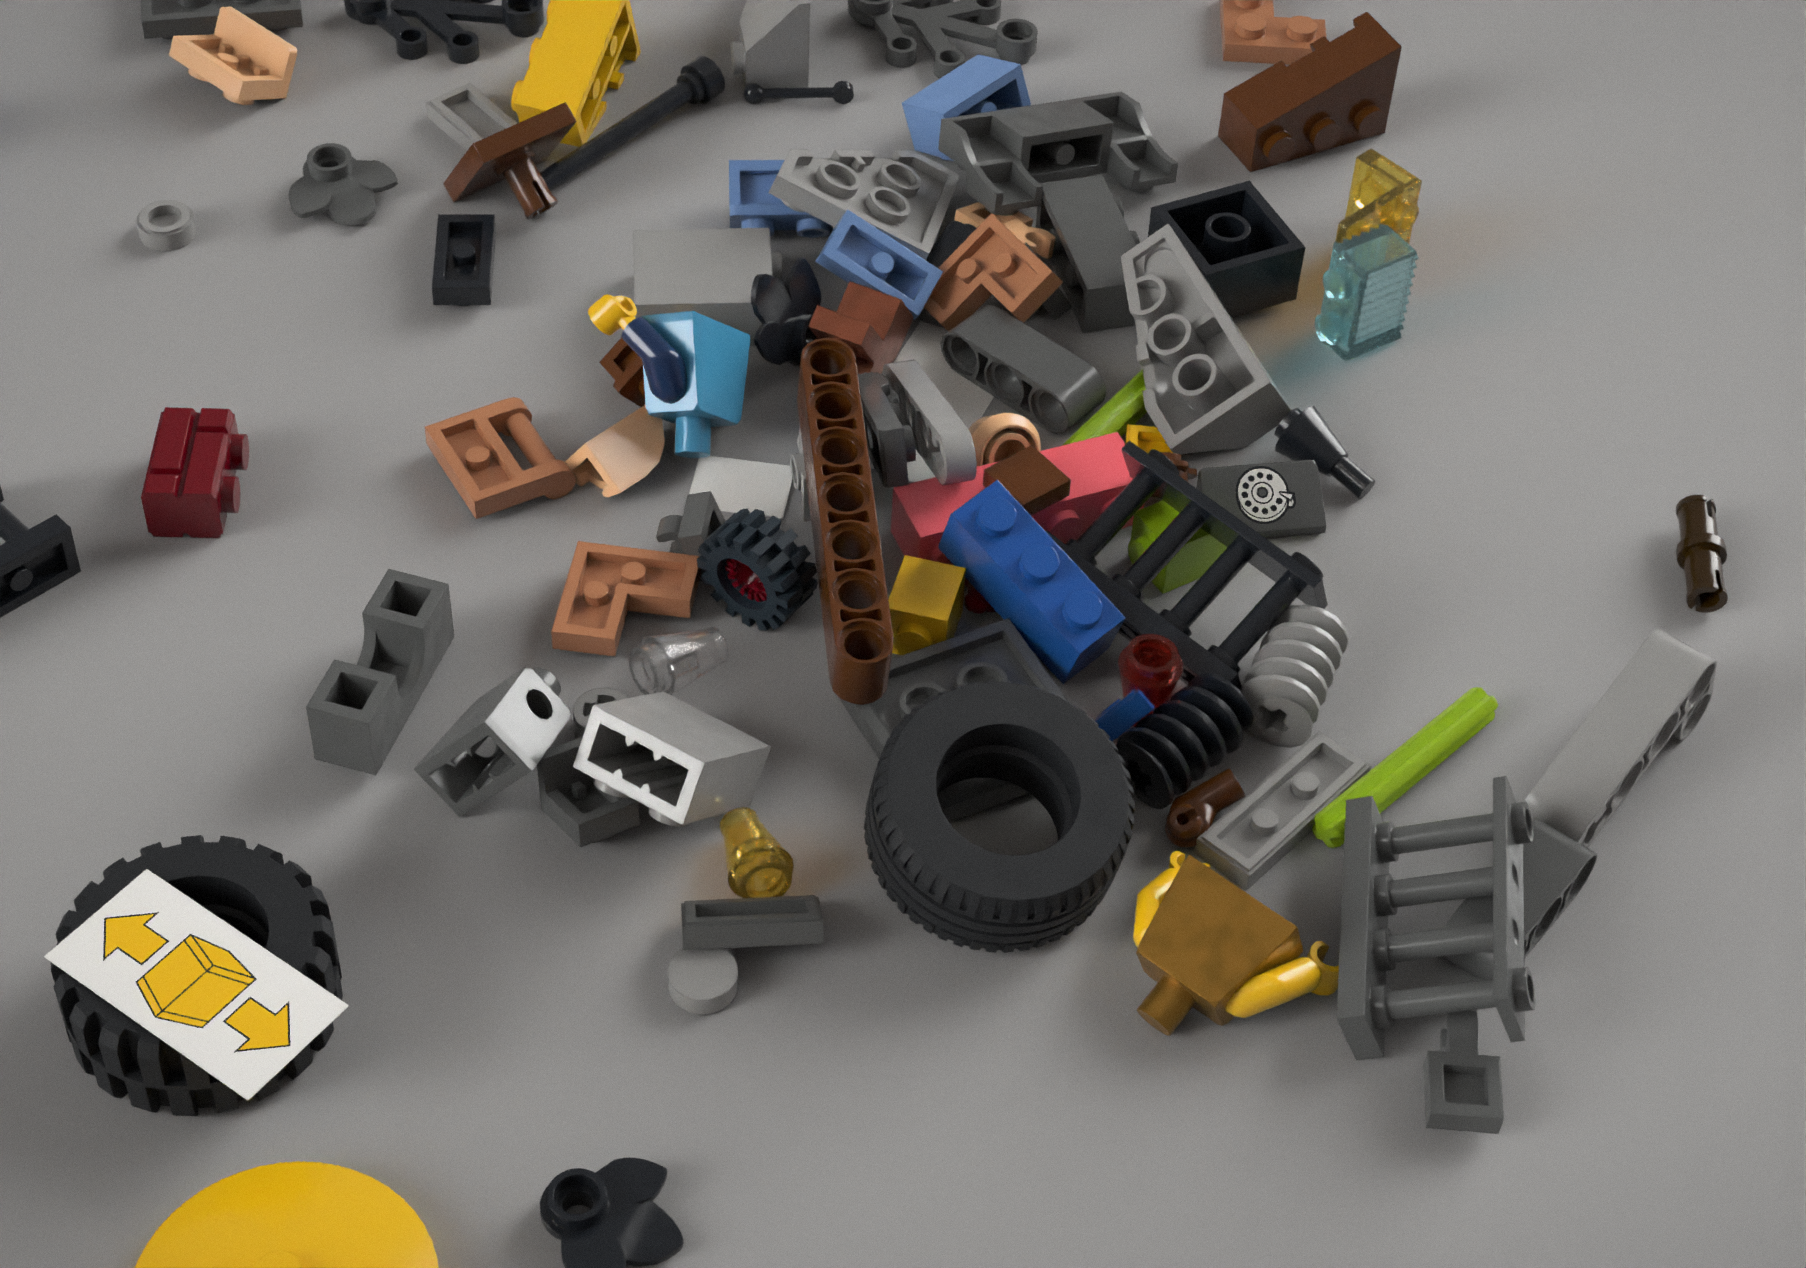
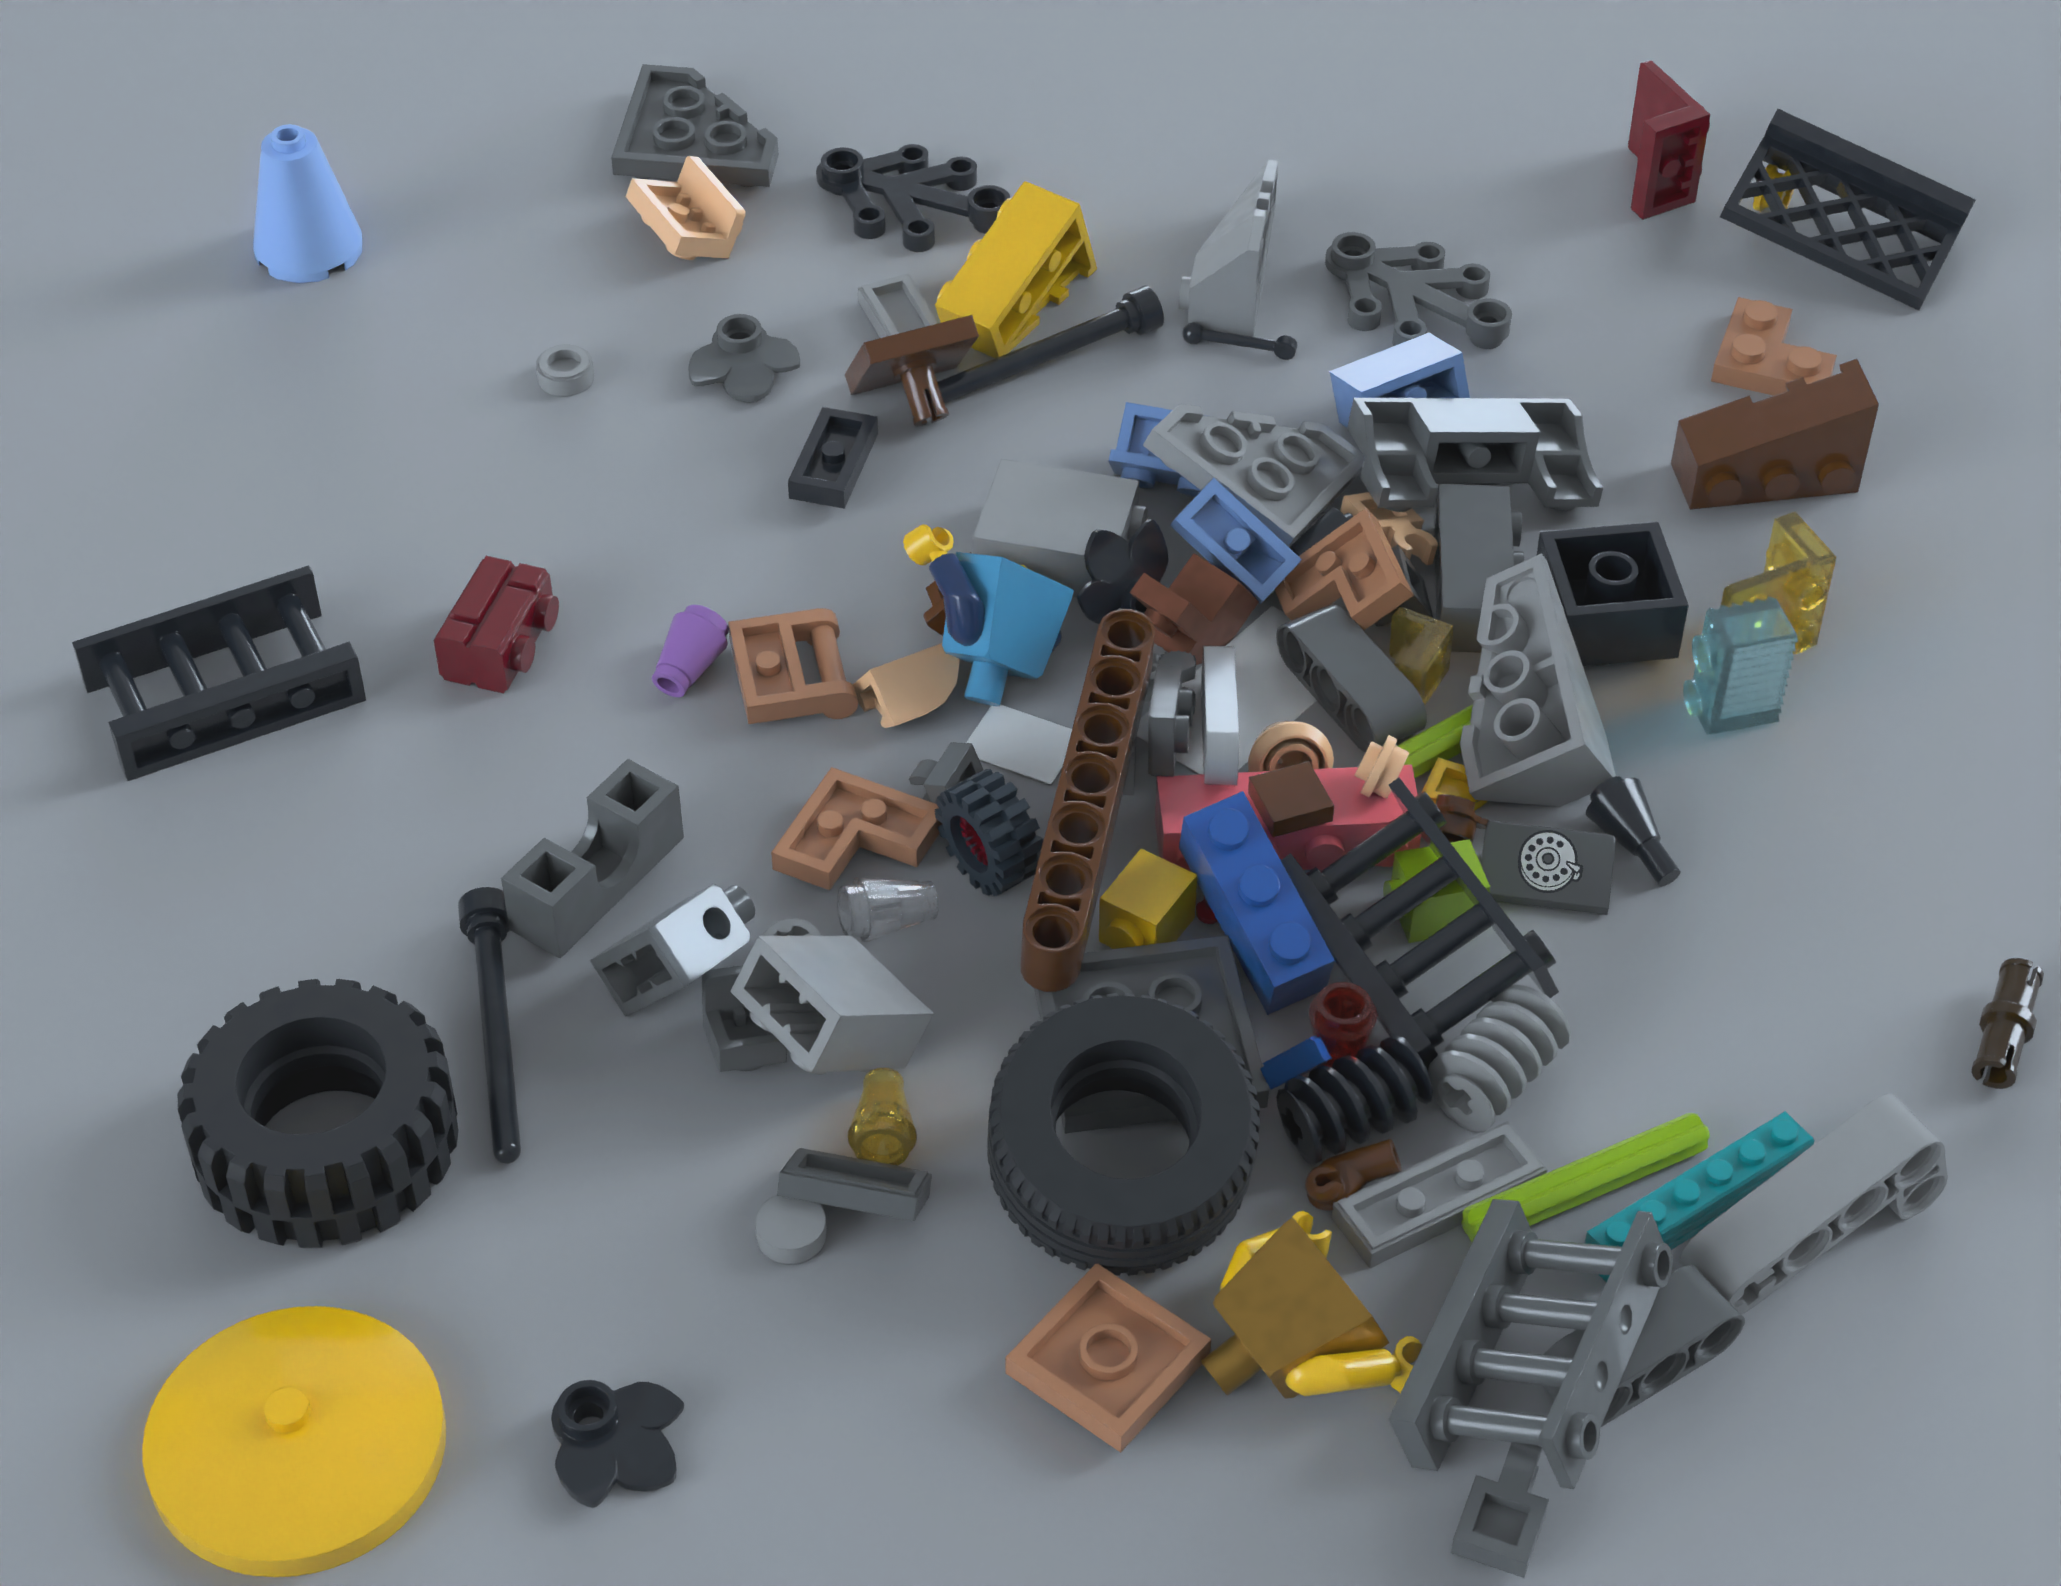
camera: 20 degrees right, 0 degrees up
(197, 983) = (300, 1120): white sticker -> none
(290, 756) = (486, 925): none -> black piece
(395, 457) = (689, 649): none -> medium lavender cone
(1051, 1026) = (1108, 1357): none -> nougat plate
(1074, 326) = (1421, 649): none -> clear yellow bracket
(1100, 437) = (1381, 767): none -> light nougat plate
(1516, 748) = (1710, 1187): none -> teal piece

